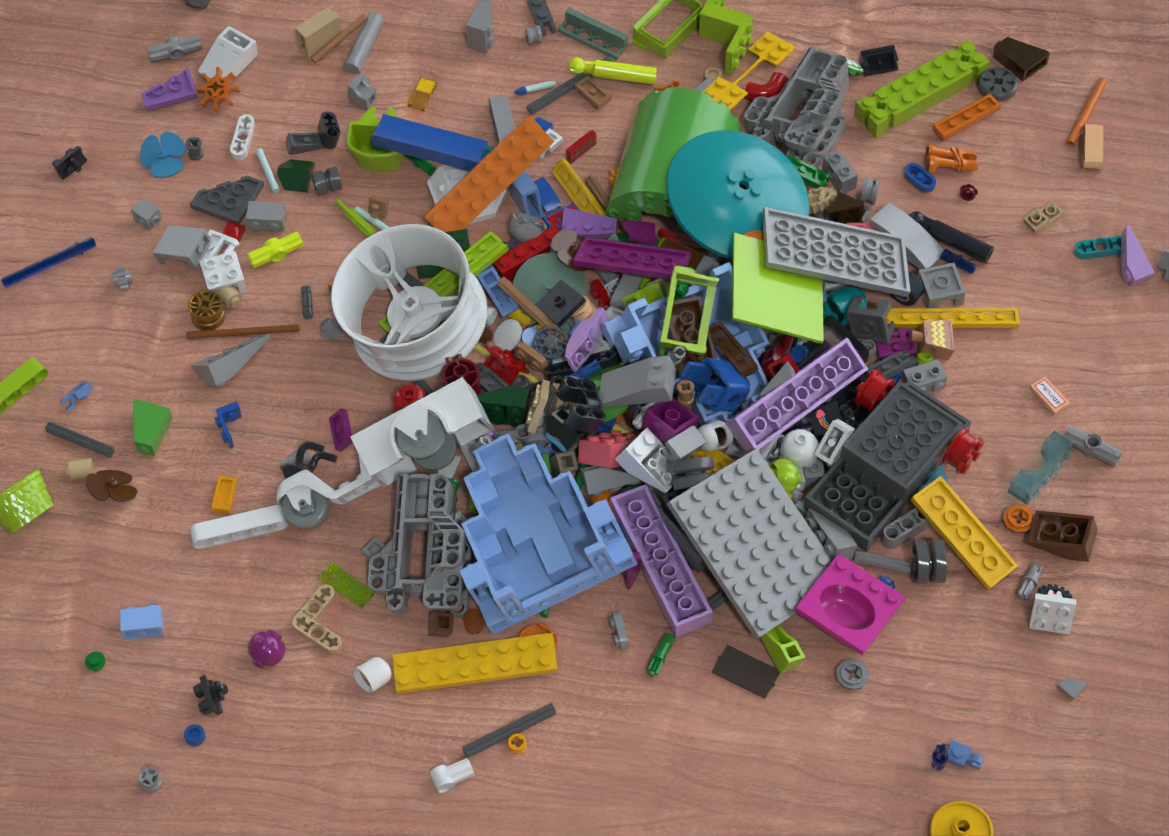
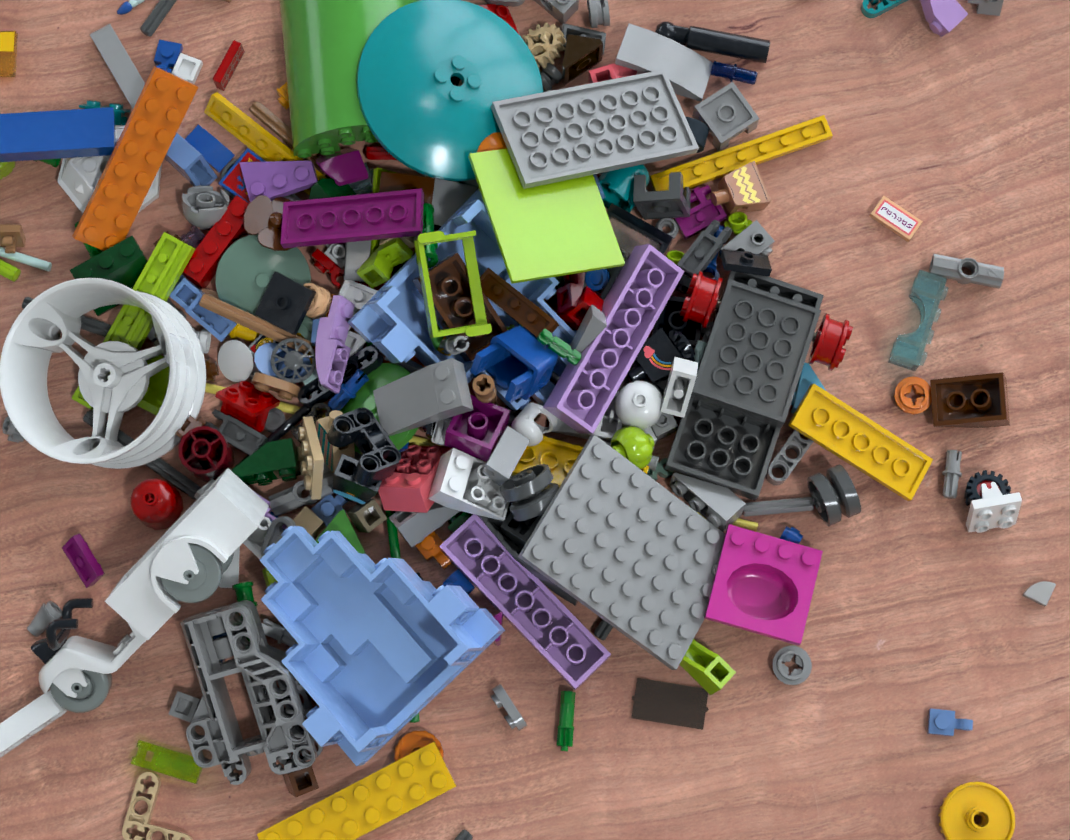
camera: 20 degrees left, 20 degrees up
(473, 616) = (331, 756): clear orange wheel -> none
(752, 381) = (559, 347): none -> green axle
(809, 173) = (517, 13): green plate -> none
(918, 380) = (746, 262): none -> black plate
(939, 757) = (926, 740): clear blue axle -> none

